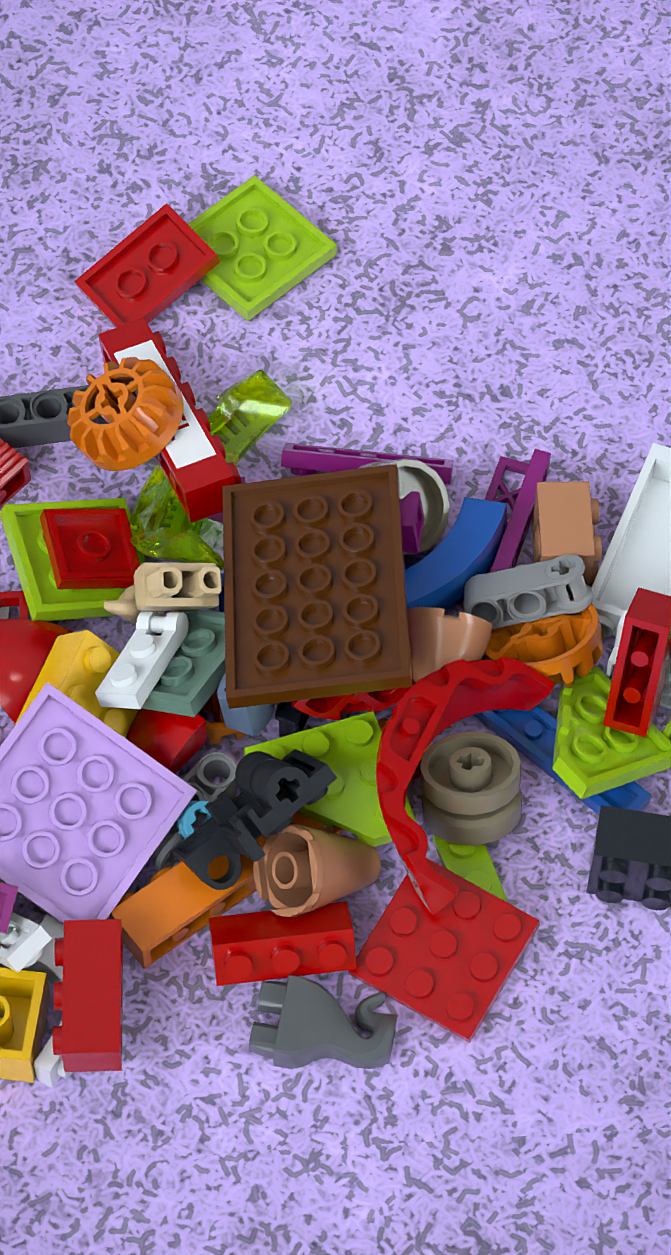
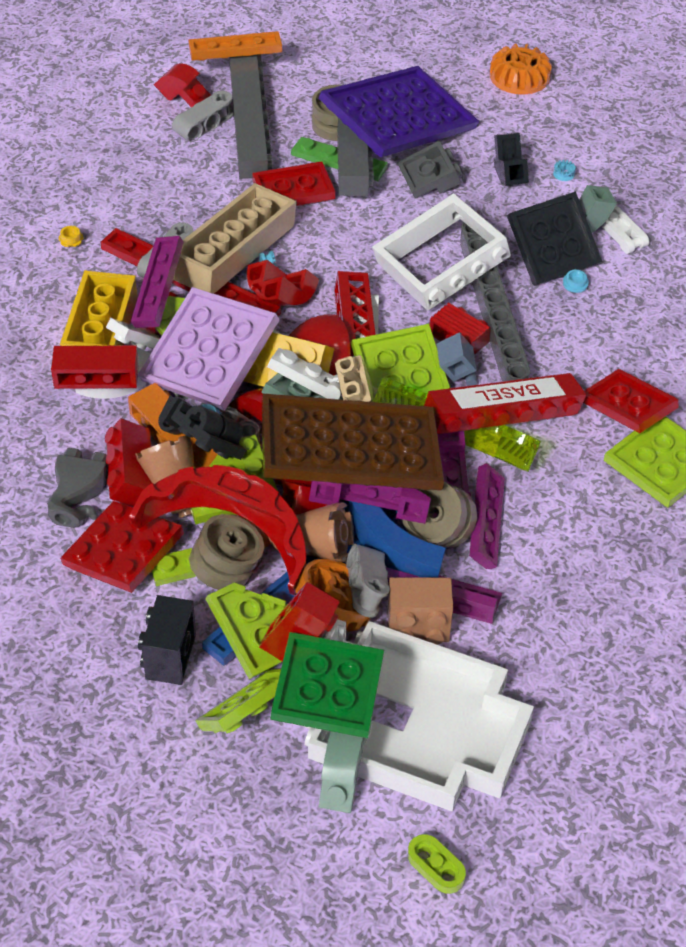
camera: 90 degrees right, 10 degrees down
(59, 479) = (457, 359): none -> sand blue brick
(90, 548) = (406, 364): red tile -> none
(135, 426) = (494, 368): orange gear -> none

